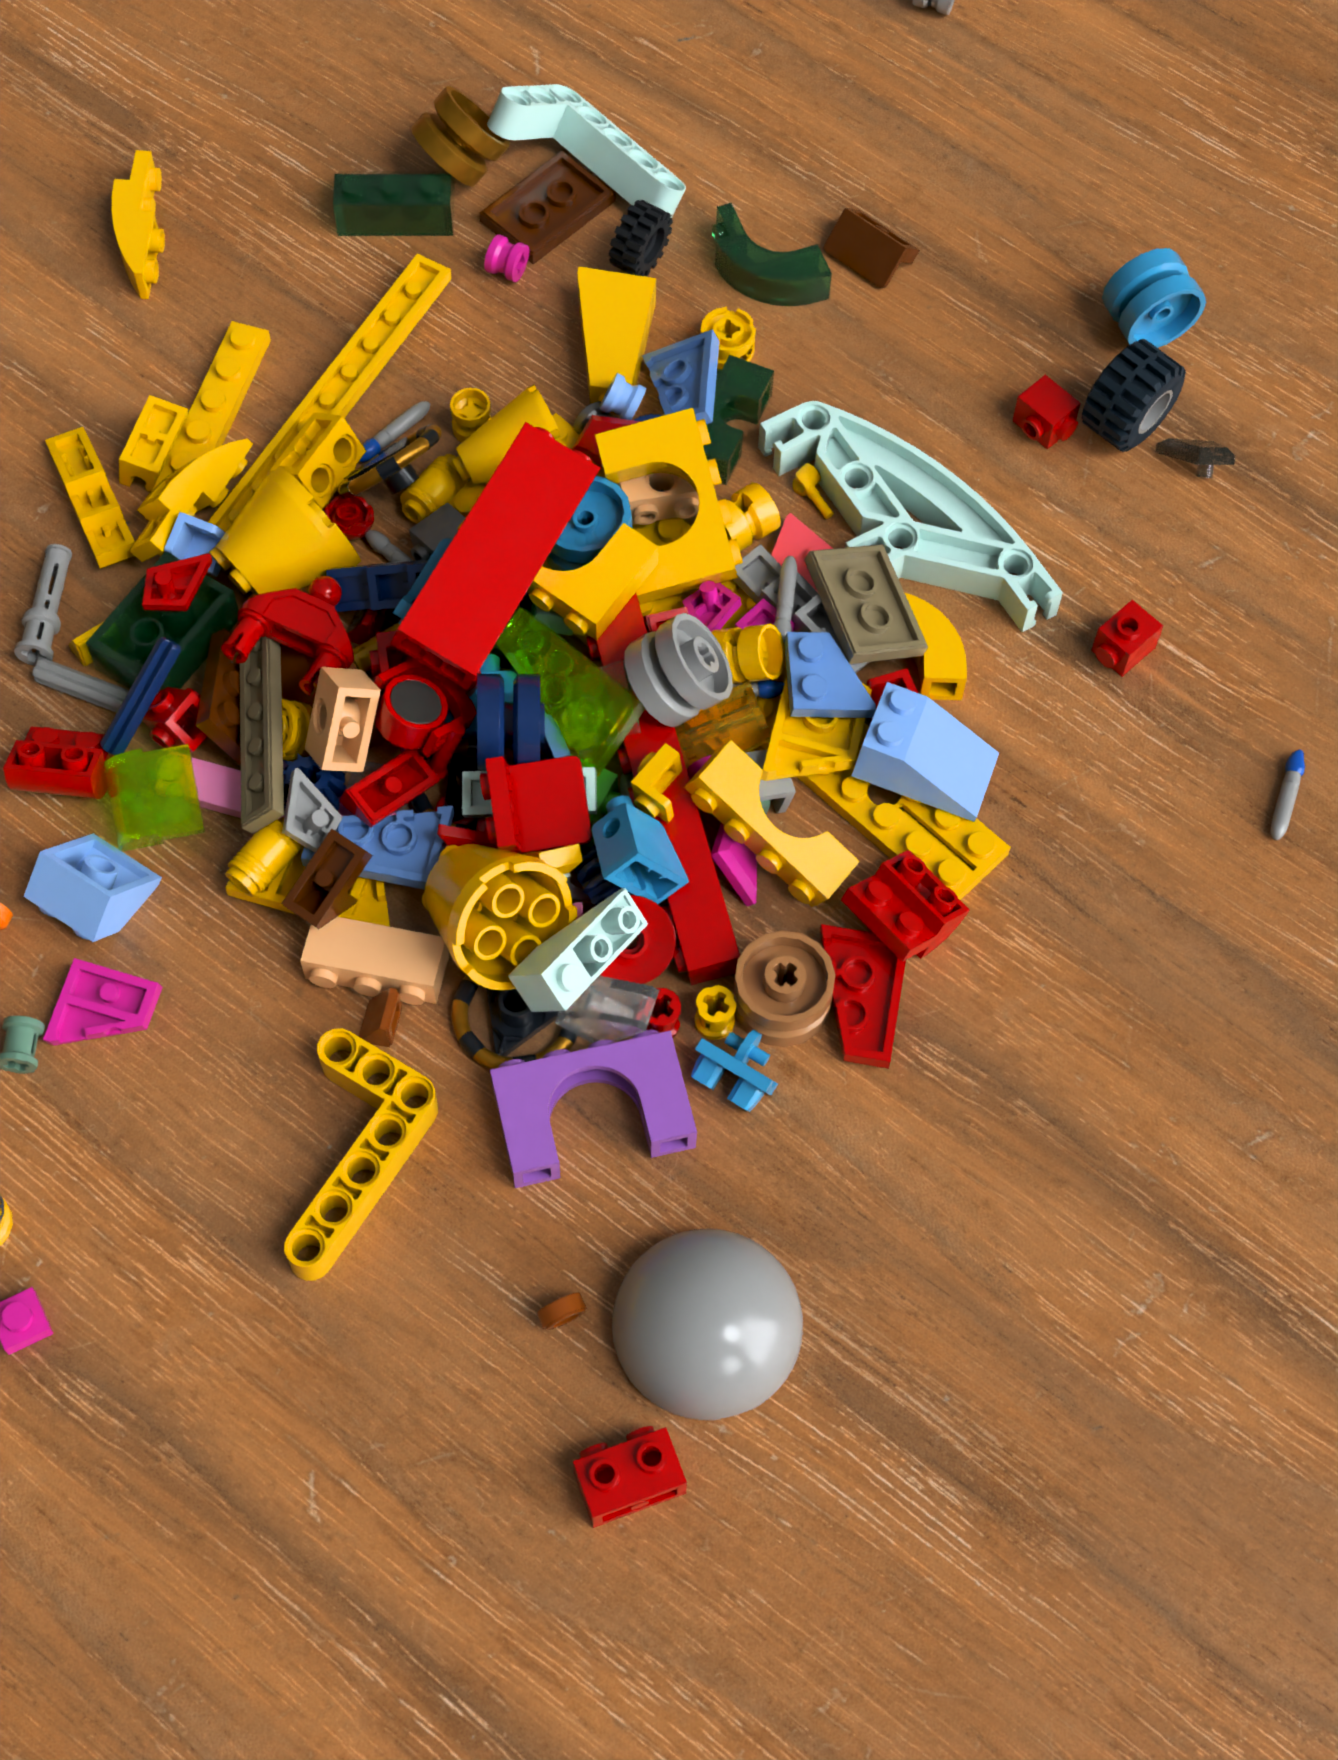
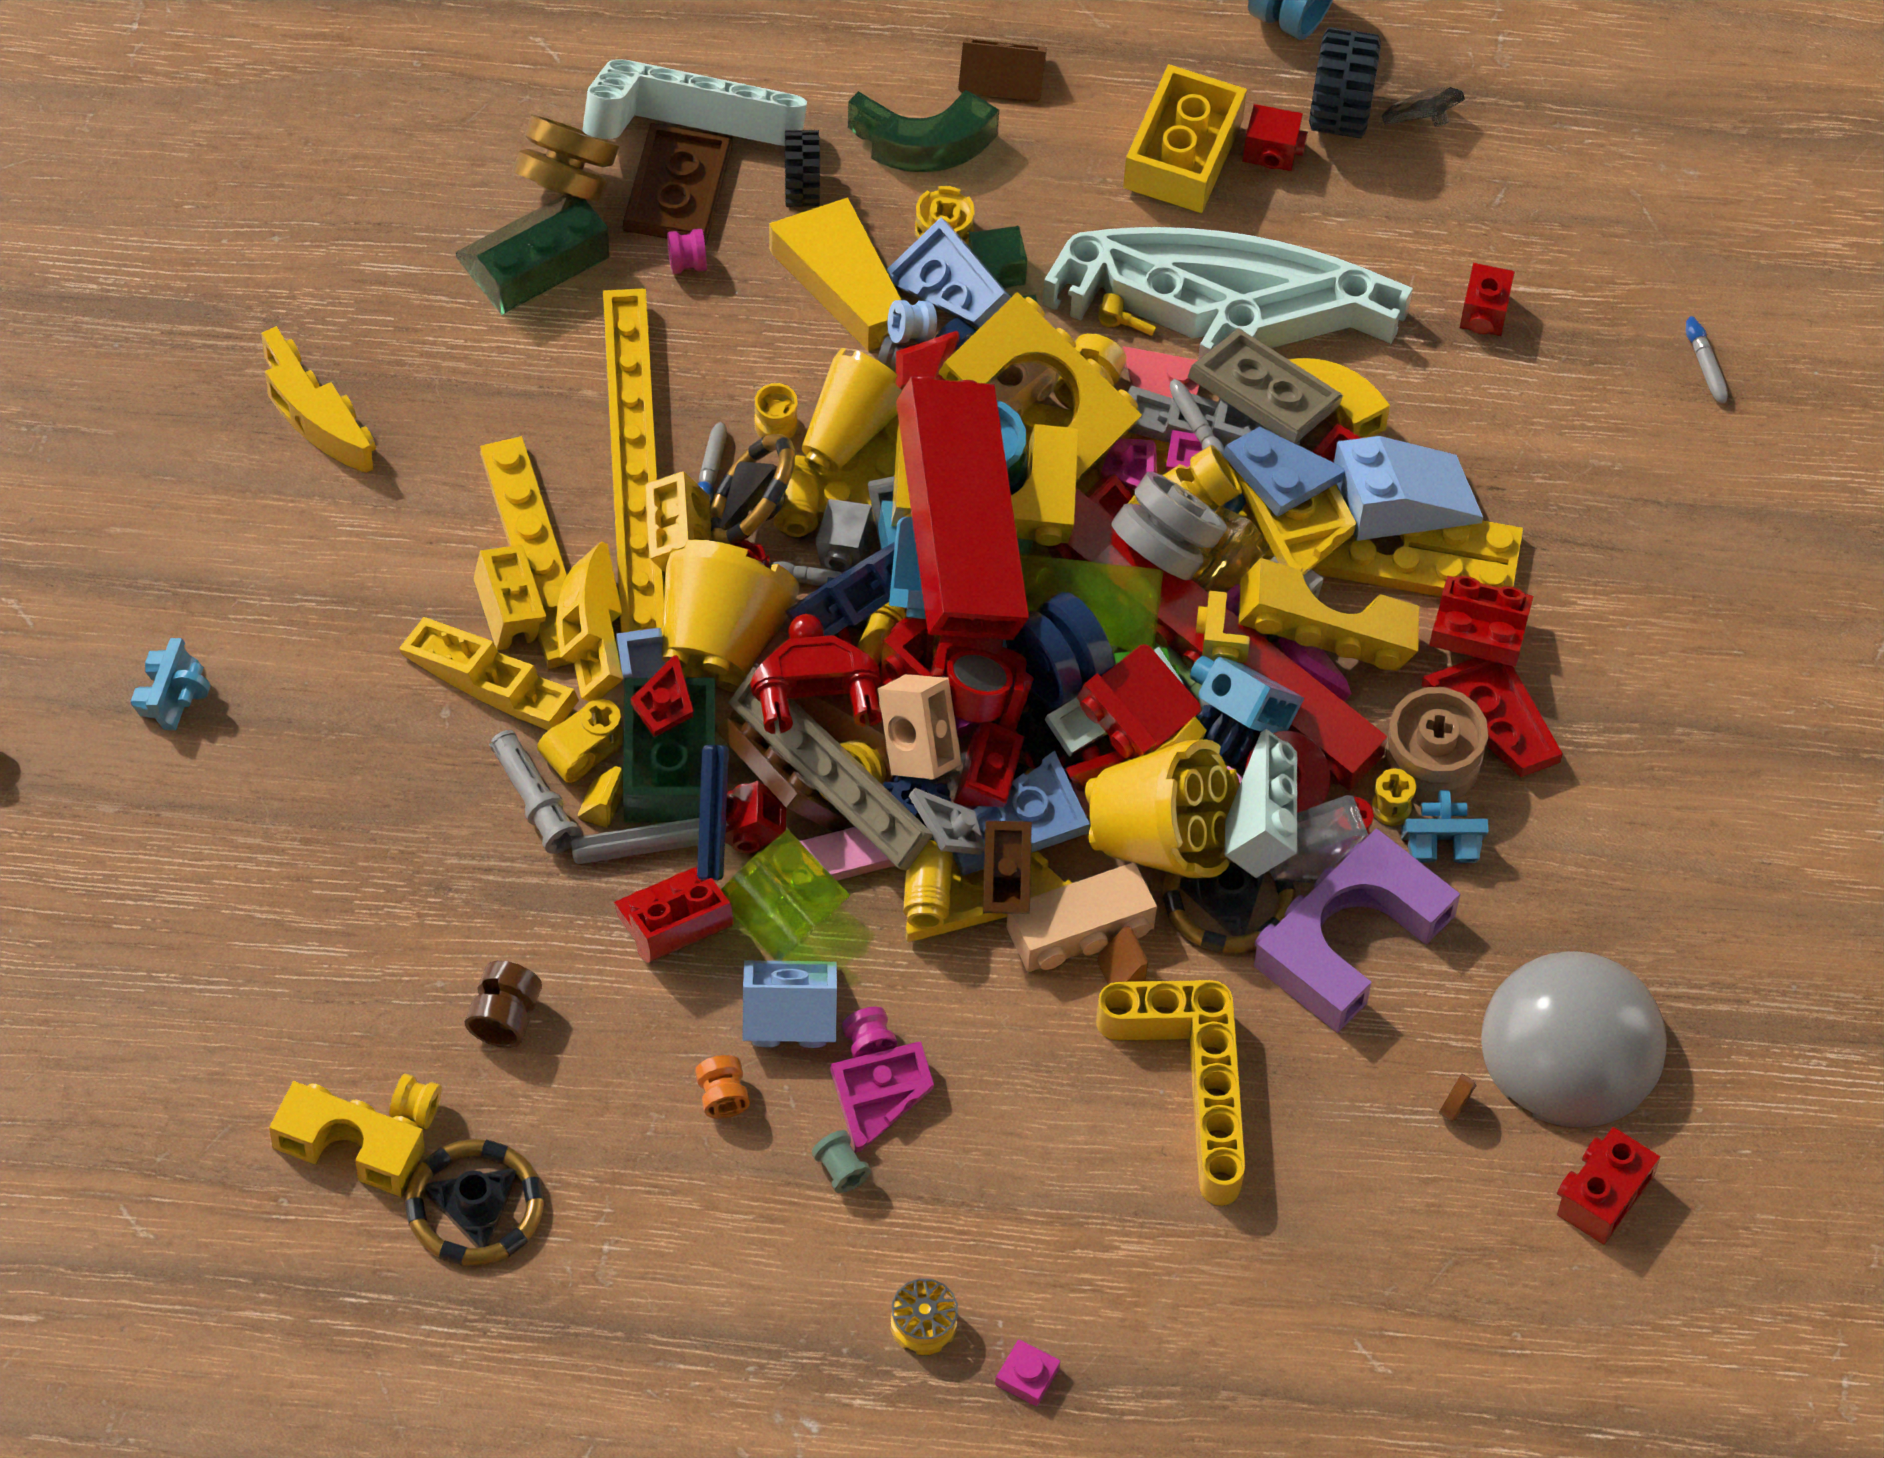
camera: 35 degrees left, 5 degrees down
(105, 584) = (583, 743): none -> yellow piece
(129, 951) = (868, 1031): none -> dark pink wheel
(967, 373) = (1184, 138): none -> yellow brick

